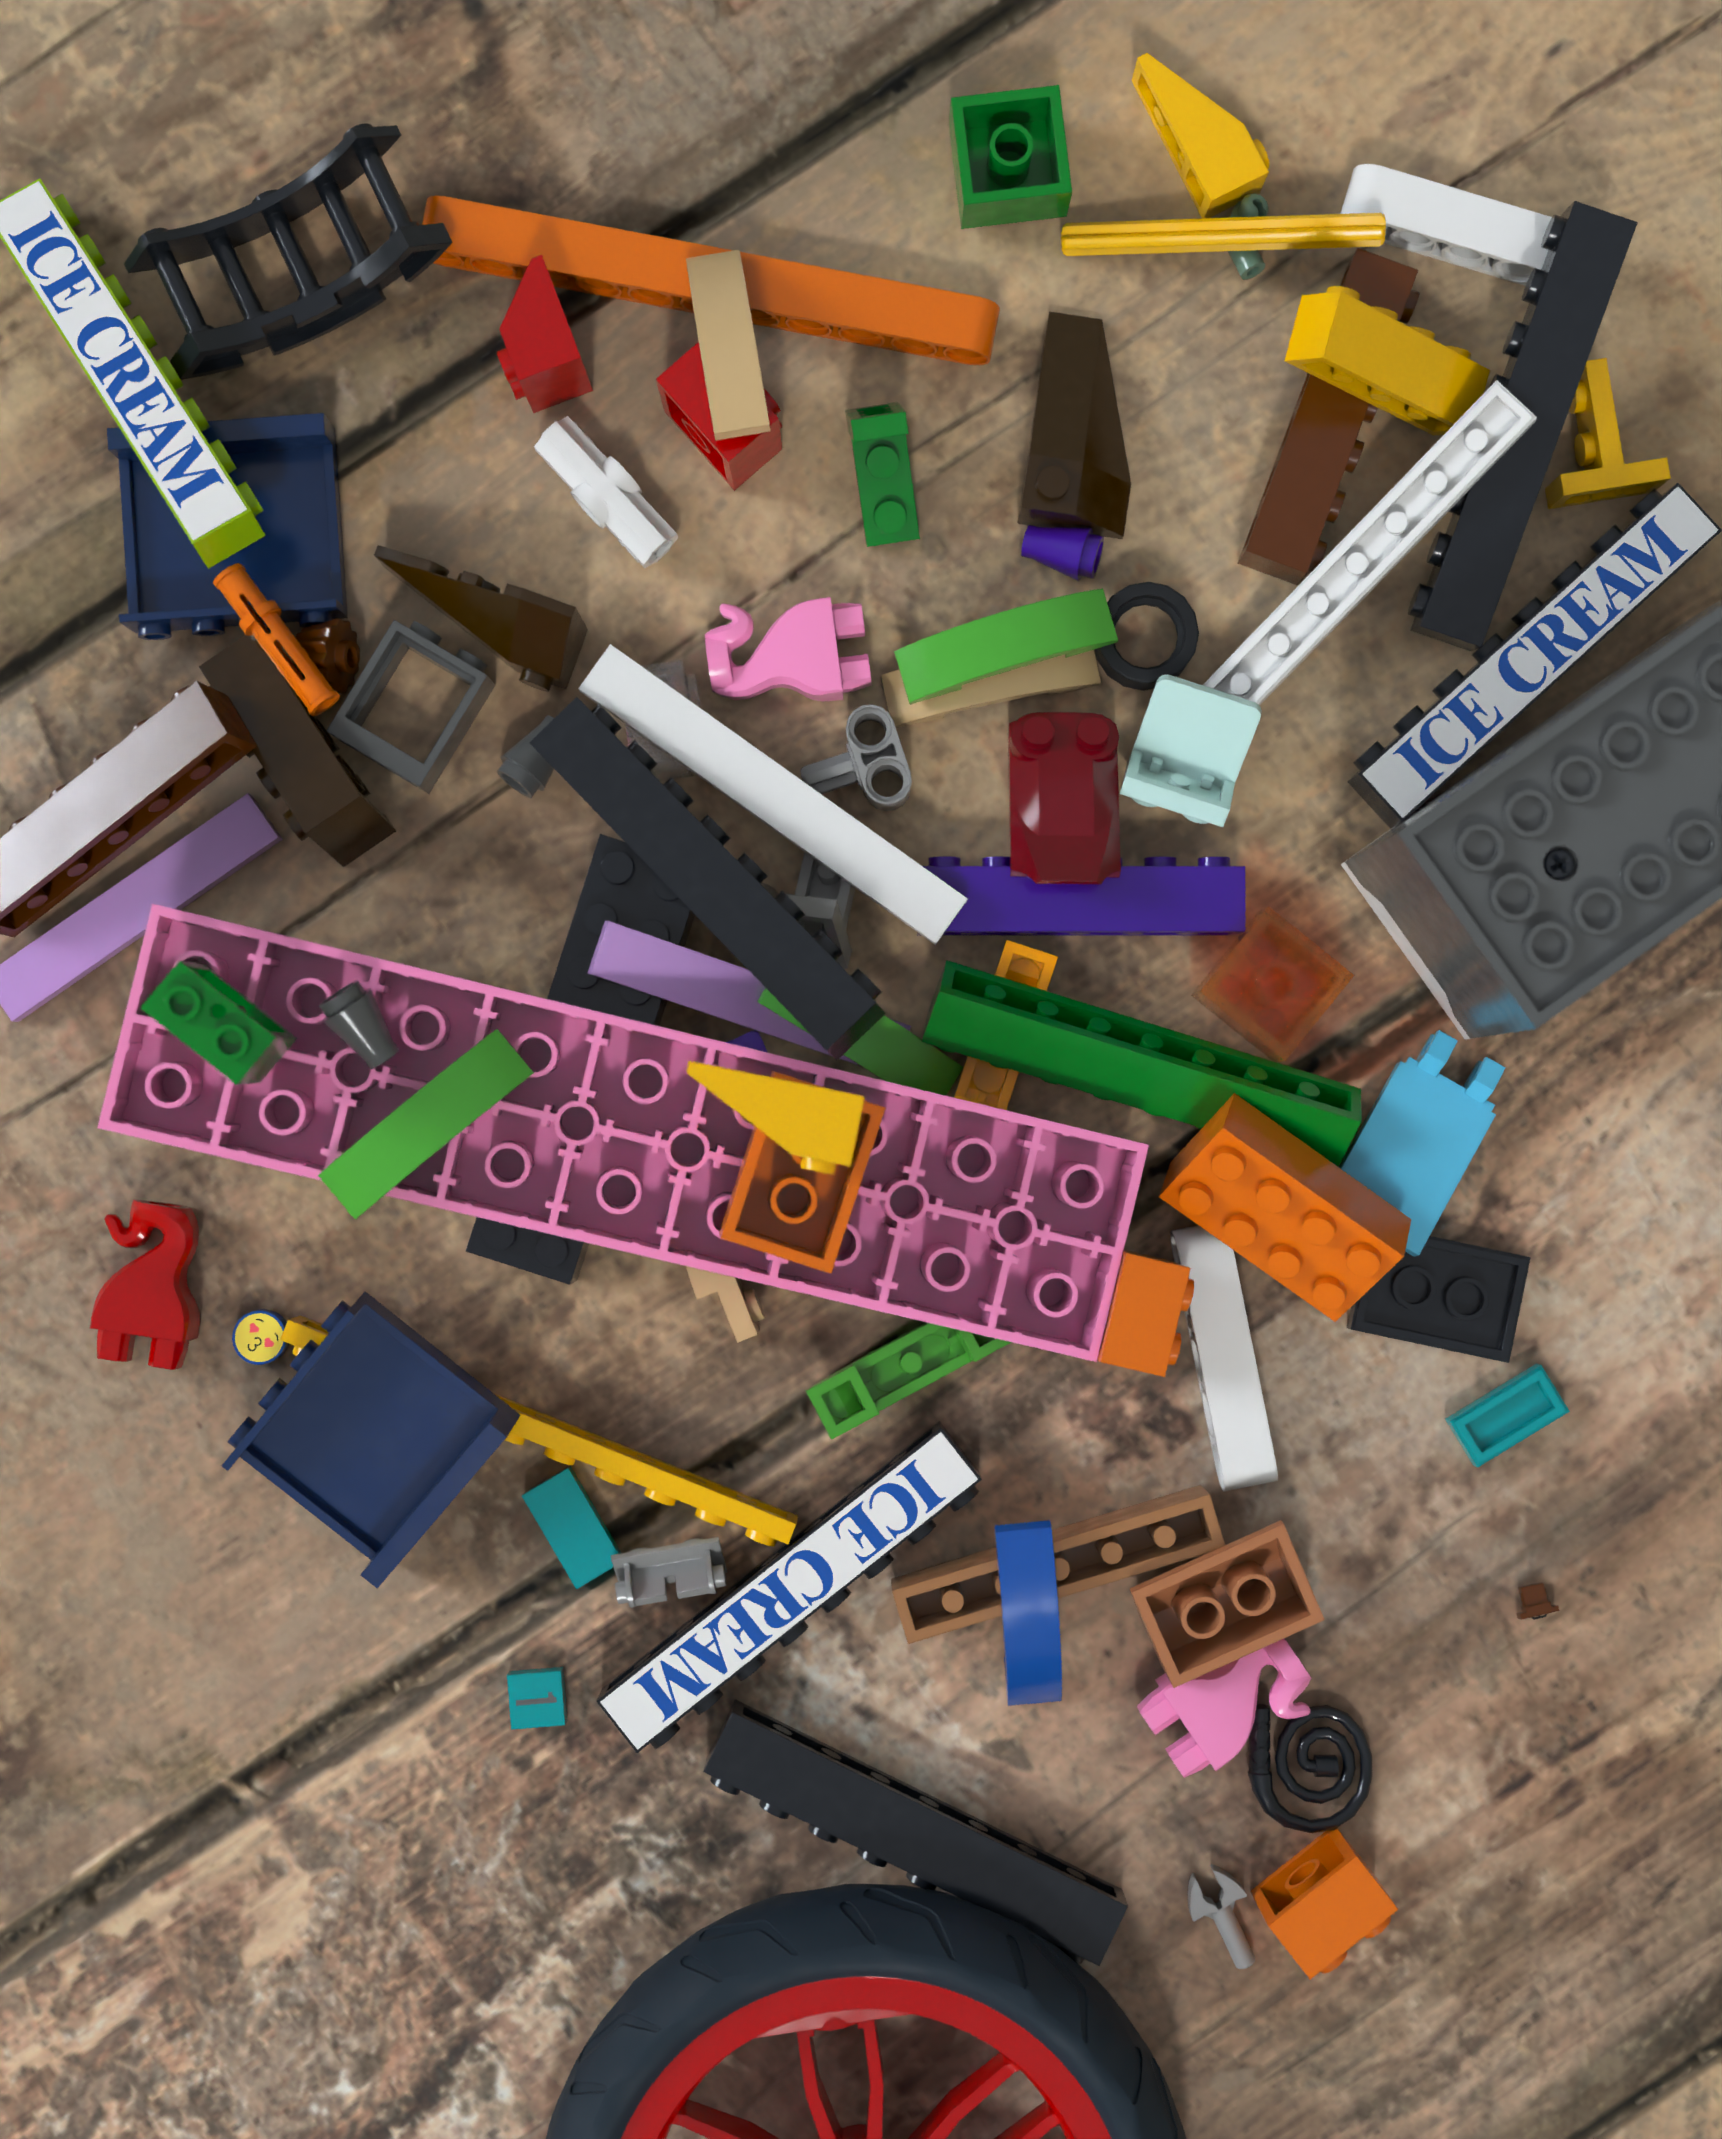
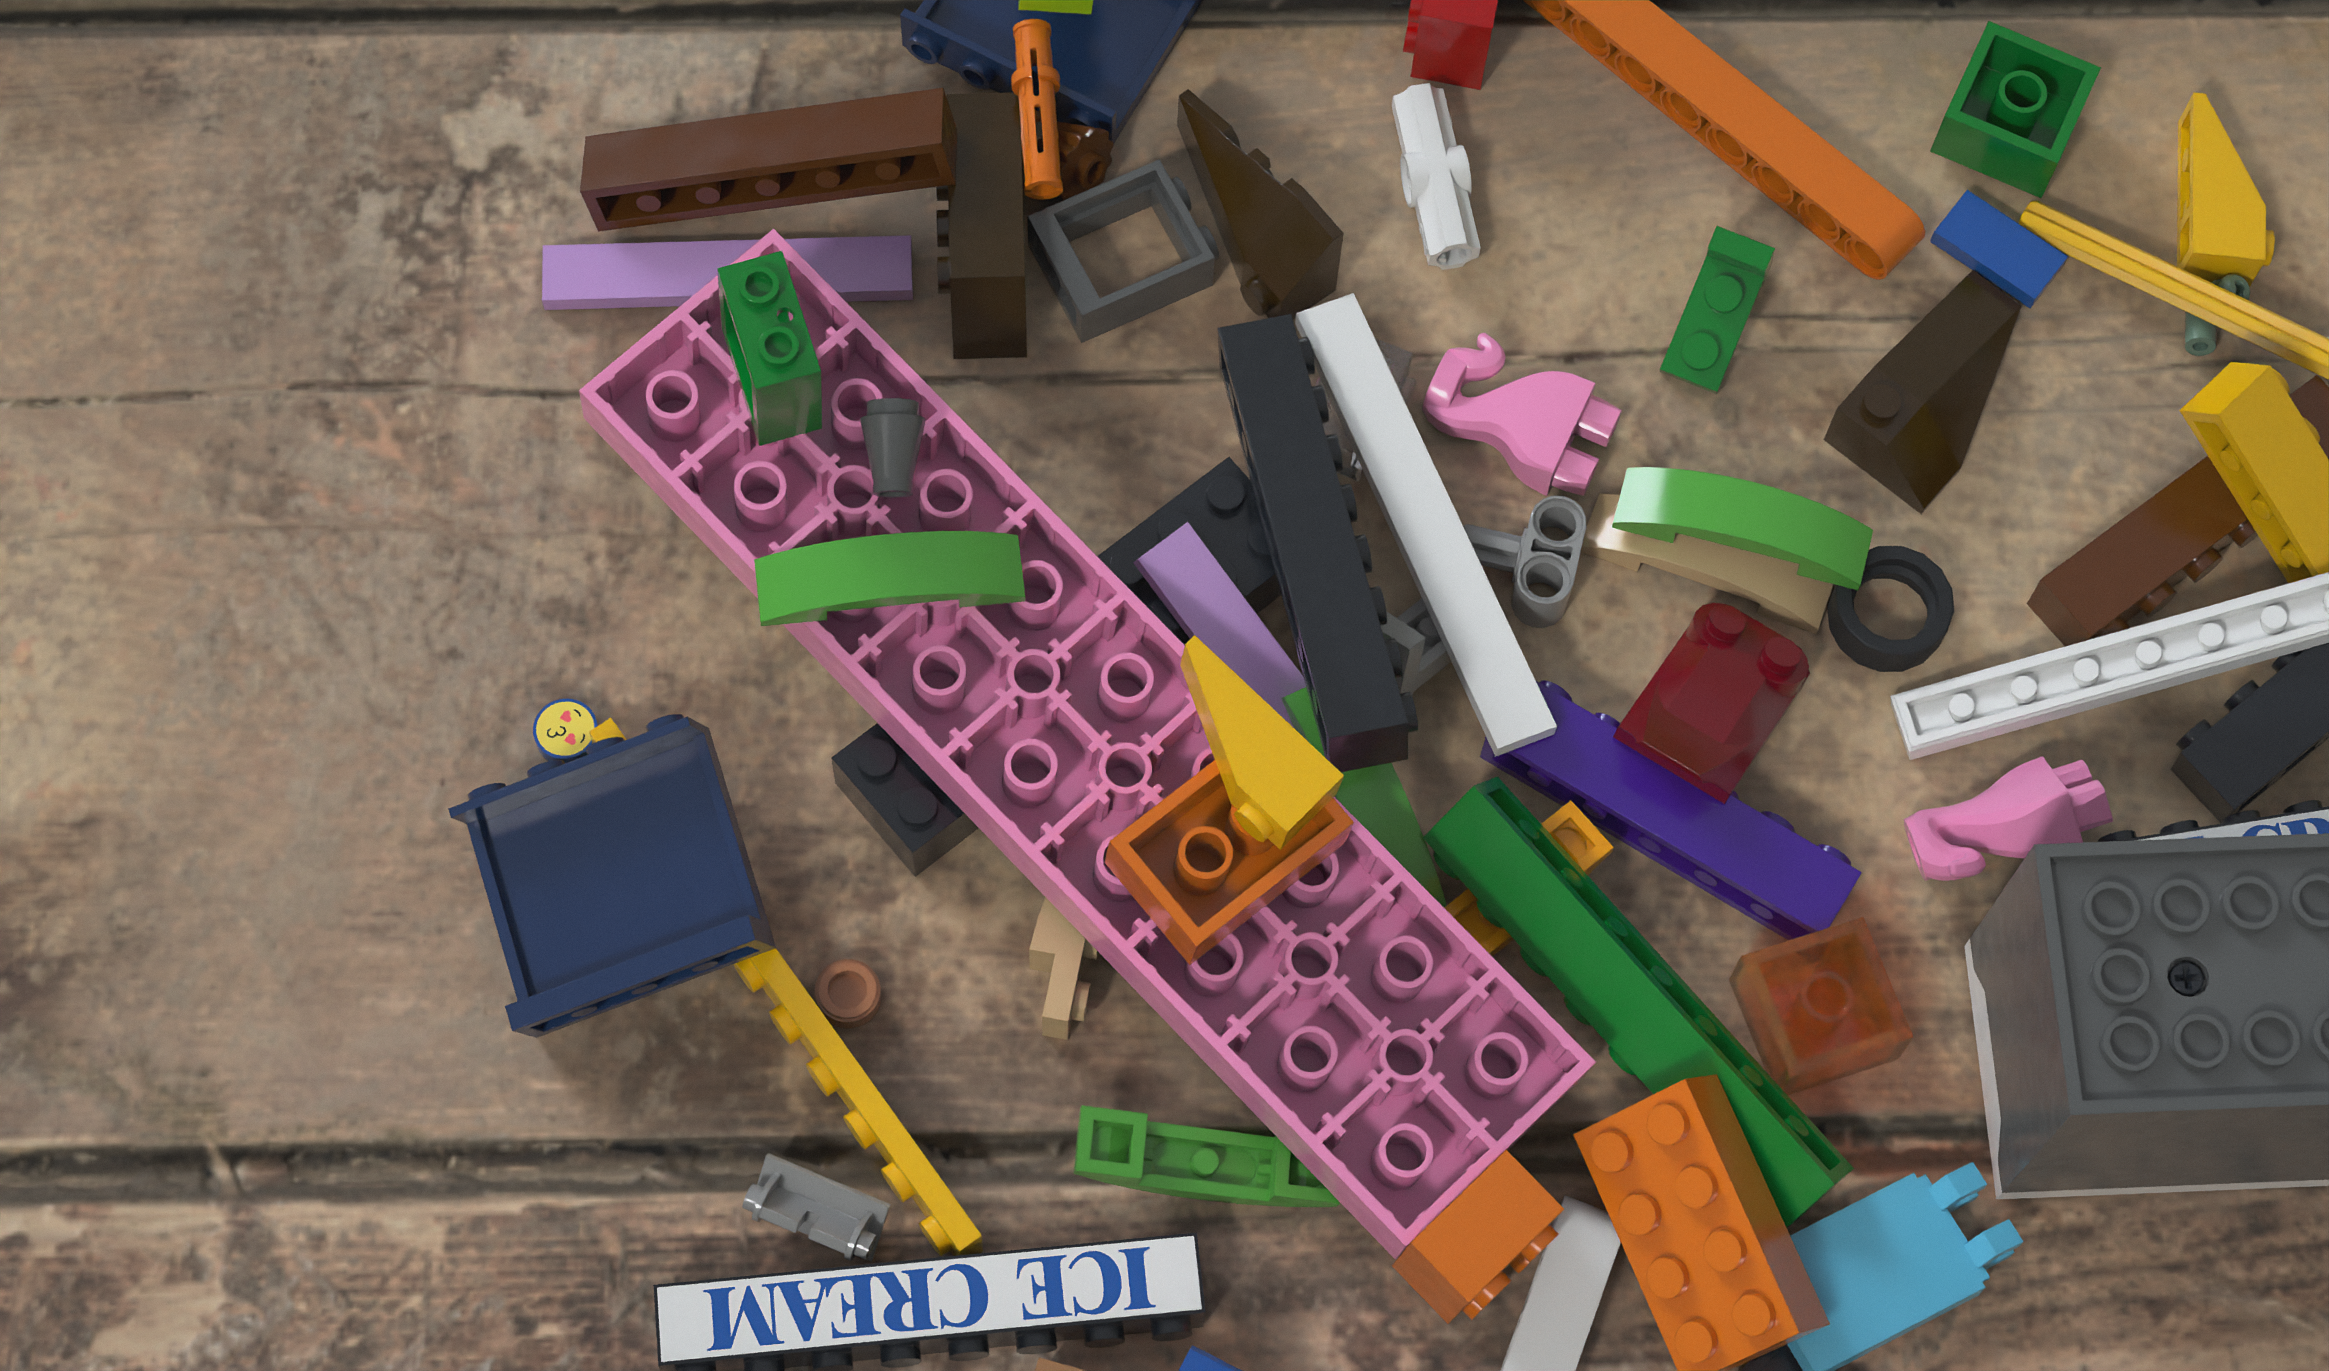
camera: 30 degrees right, 20 degrees down
(152, 1291) = (492, 619): red hips -> none
(524, 766) = (1193, 368): dark grey cone -> none
(537, 1698) = (588, 1261): teal tile -> none
(572, 1526) = (744, 1109): teal tile -> none
(587, 1398) = (848, 993): none -> nougat tile
(687, 405) = (1594, 163): red brick -> none
(727, 345) = (1637, 99): tan slope -> none
(1059, 281) = (1998, 249): none -> blue tile
(1066, 550) = (1858, 485): dark purple cone -> none
(1190, 750) = (1873, 732): light aqua bracket -> none
(1334, 746) = (2007, 819): none -> bright pink hips

